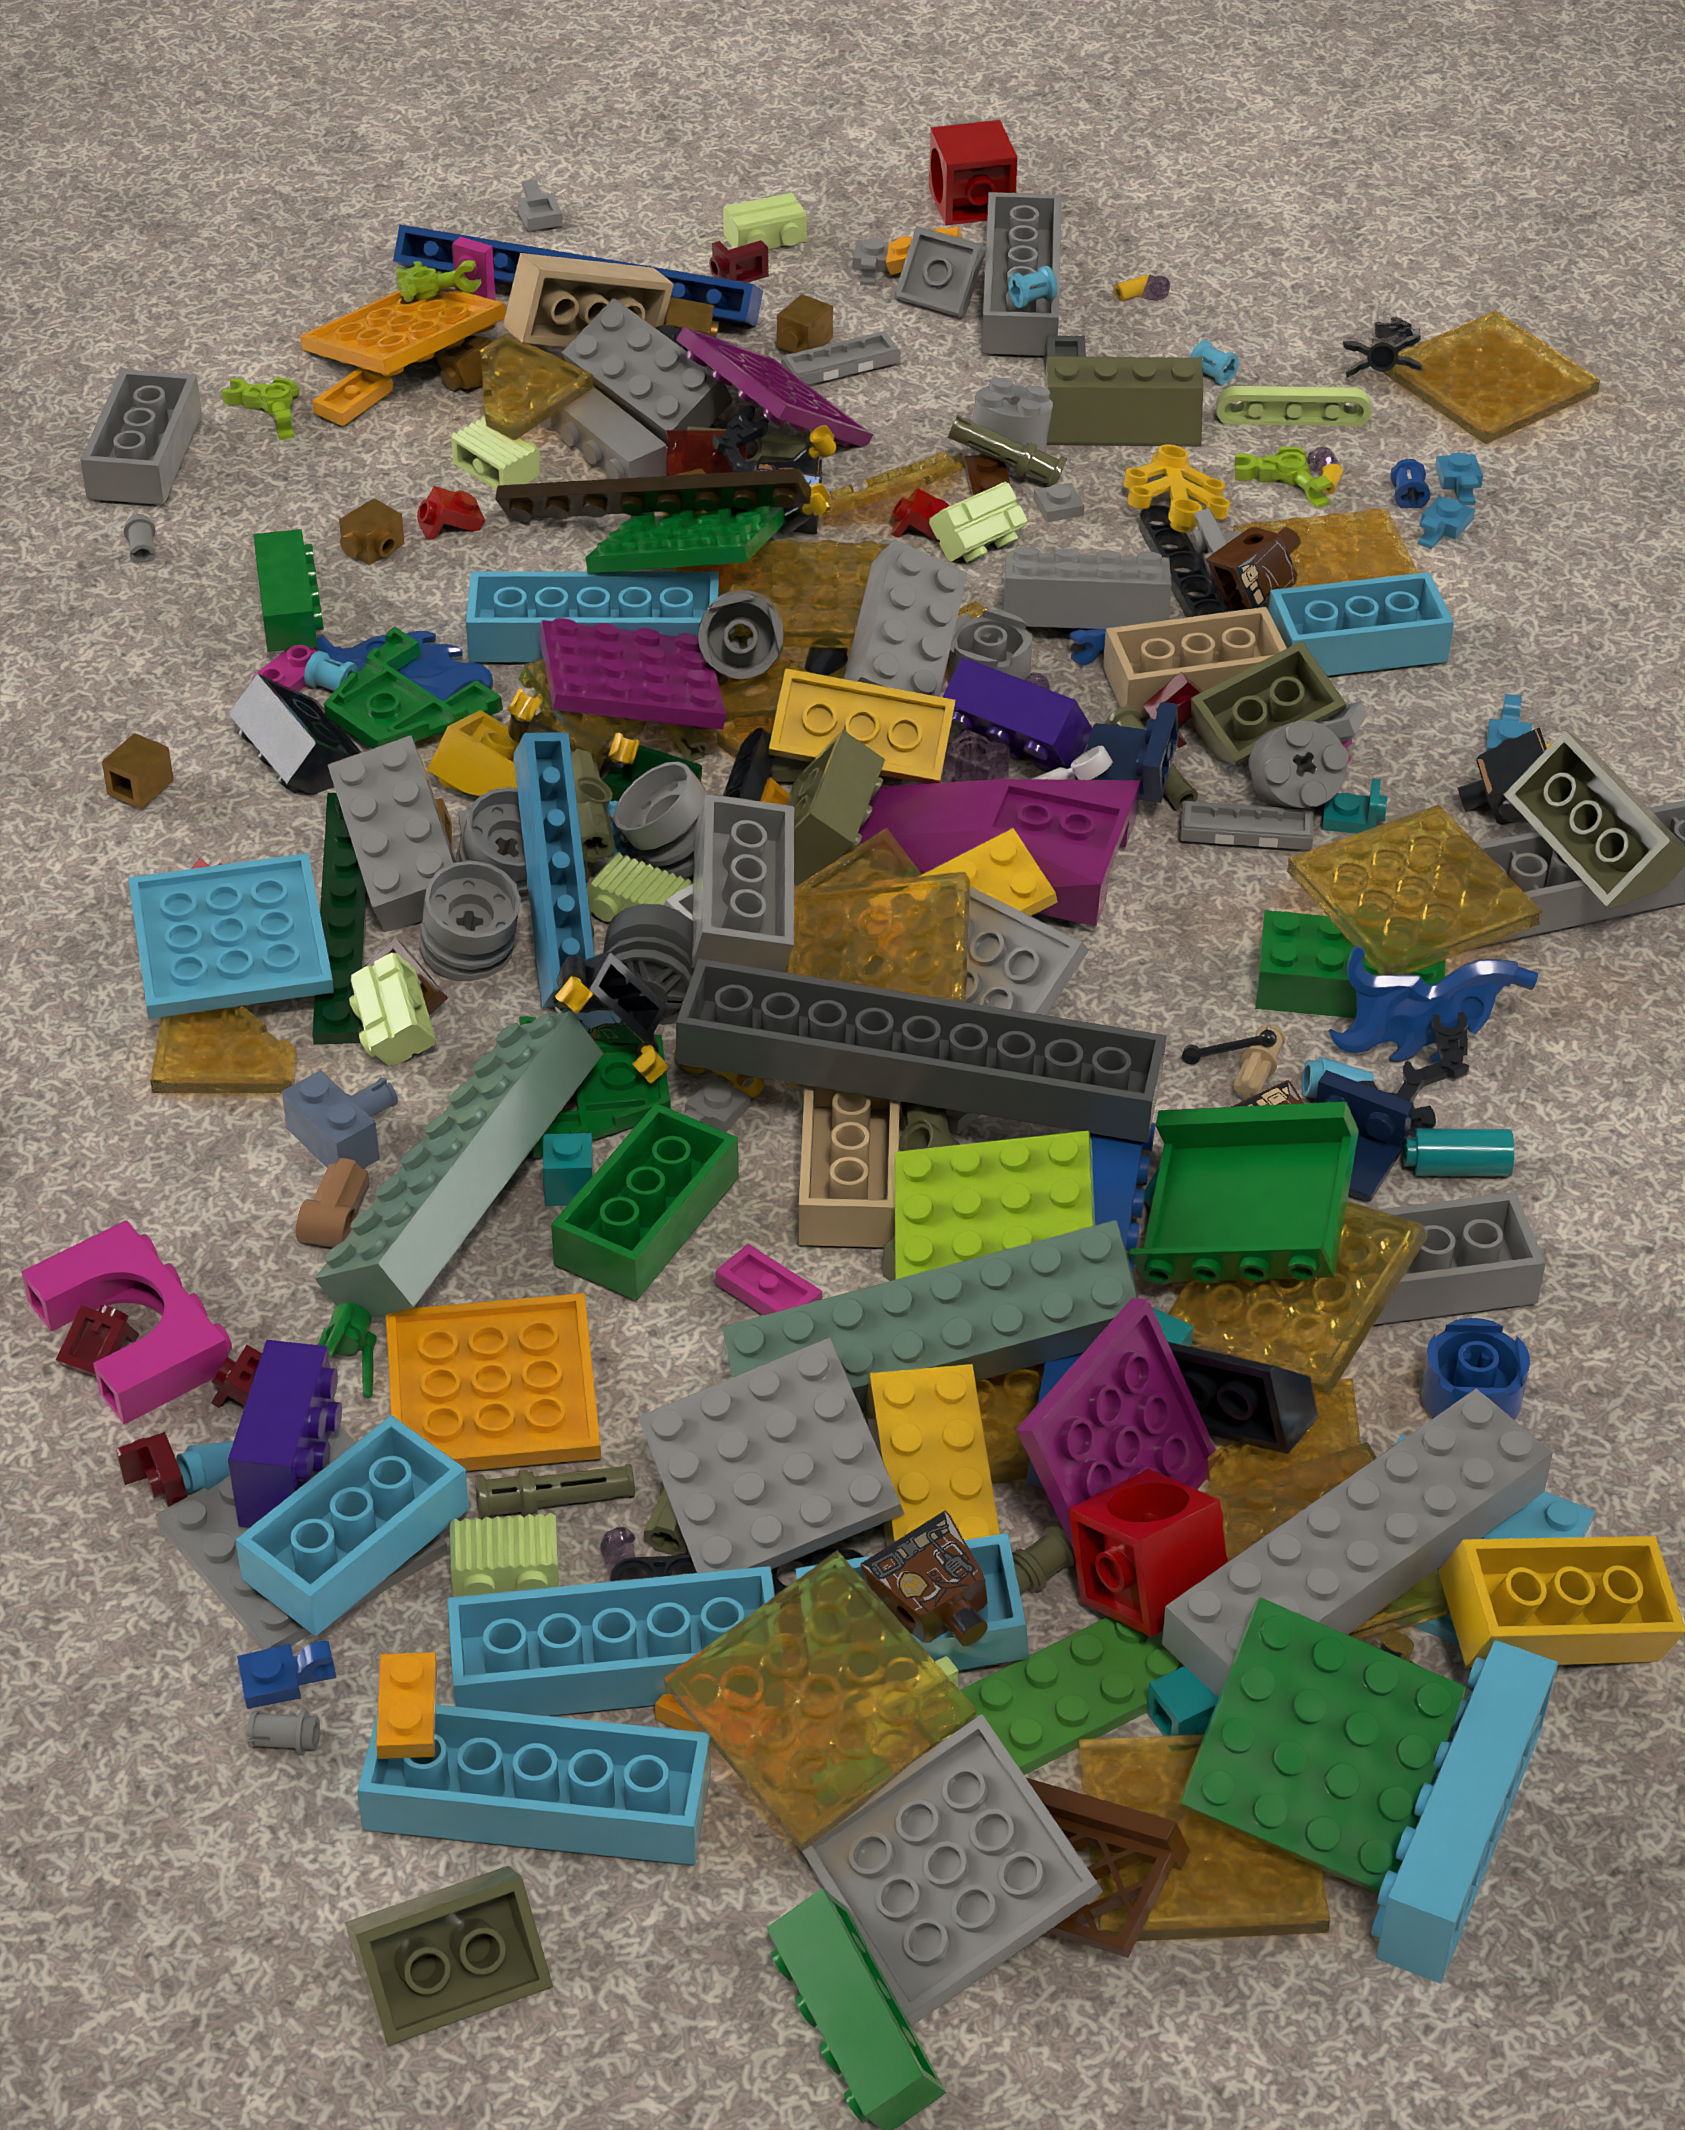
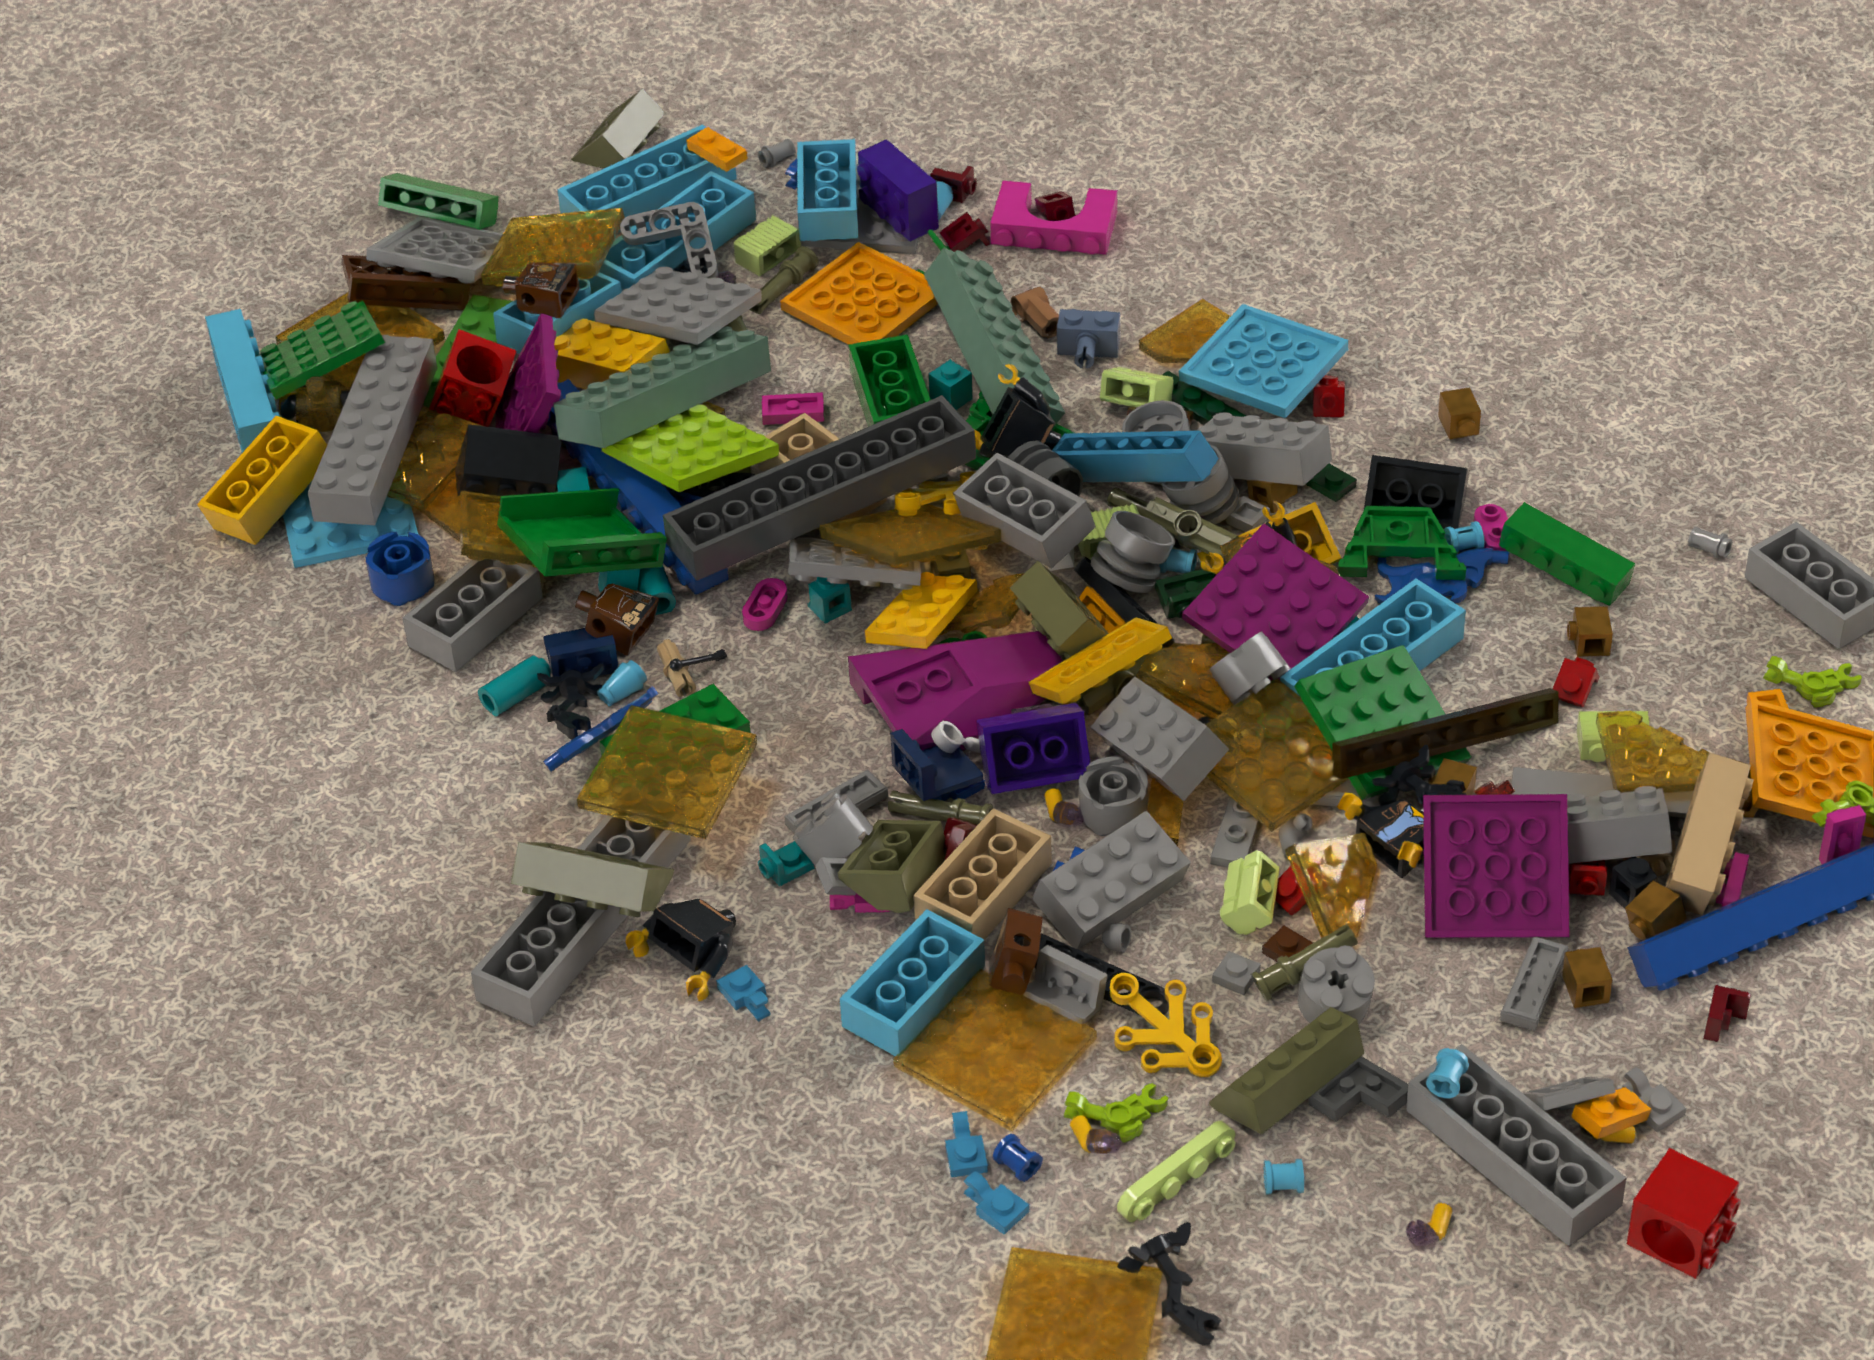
camera: 140 degrees right, 0 degrees up
(620, 1575) = (687, 229): none -> light grey beam
(773, 219) = (1762, 1064): yellowish green brick -> none

